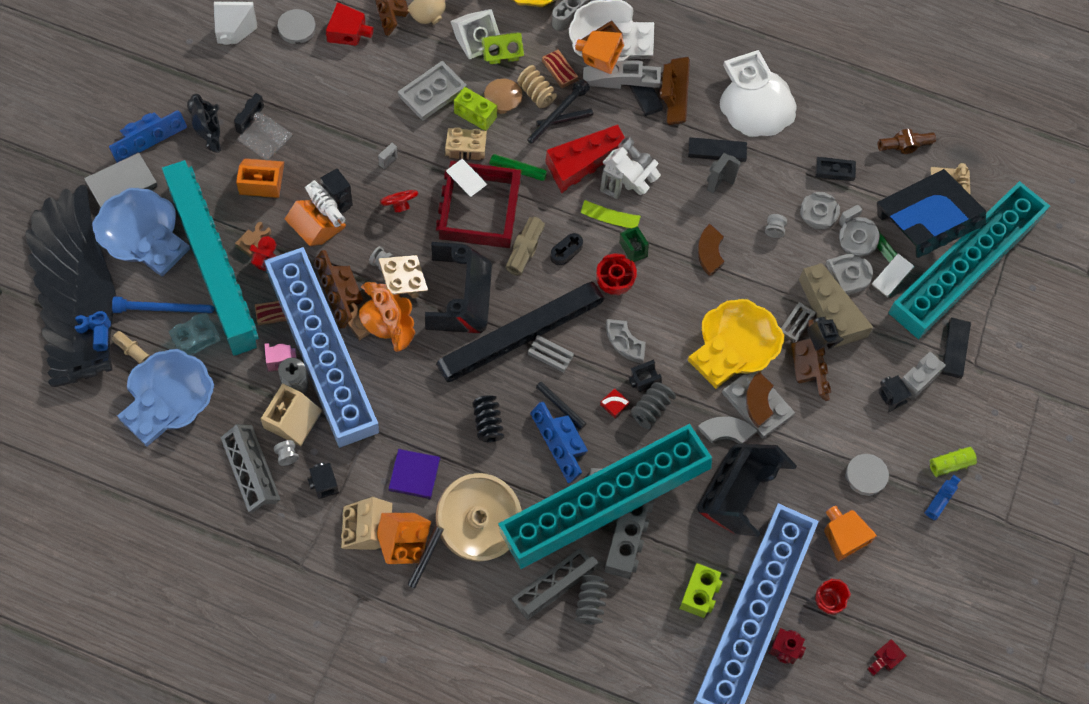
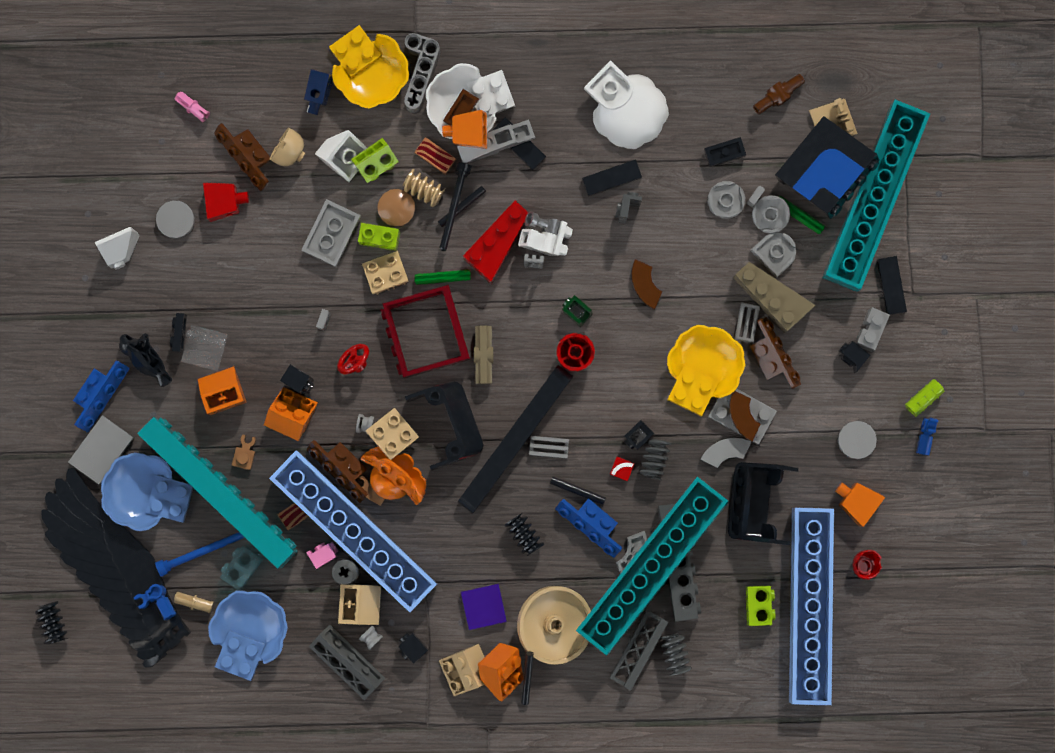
camera: 20 degrees left, 20 degrees up
(265, 251) = (263, 467): red hips -> none
(324, 203) = (293, 399): white hinge -> none
(466, 177) = (404, 314): white sticker -> none
(564, 246) = (516, 337): black beam -> none
(610, 216) = (543, 288): lime sticker -> none
(624, 342) = (606, 407): light grey tile -> none
(675, 89) = (550, 133): reddish brown bracket -> none
(776, 226) = (694, 234): light grey wheel -> none
(787, 646) = (840, 620): dark red brick -> none
(824, 333) = (776, 332): black window -> none
(887, 656) = (929, 592): dark red plate -> none
(892, 275) = (814, 240): white tile -> none

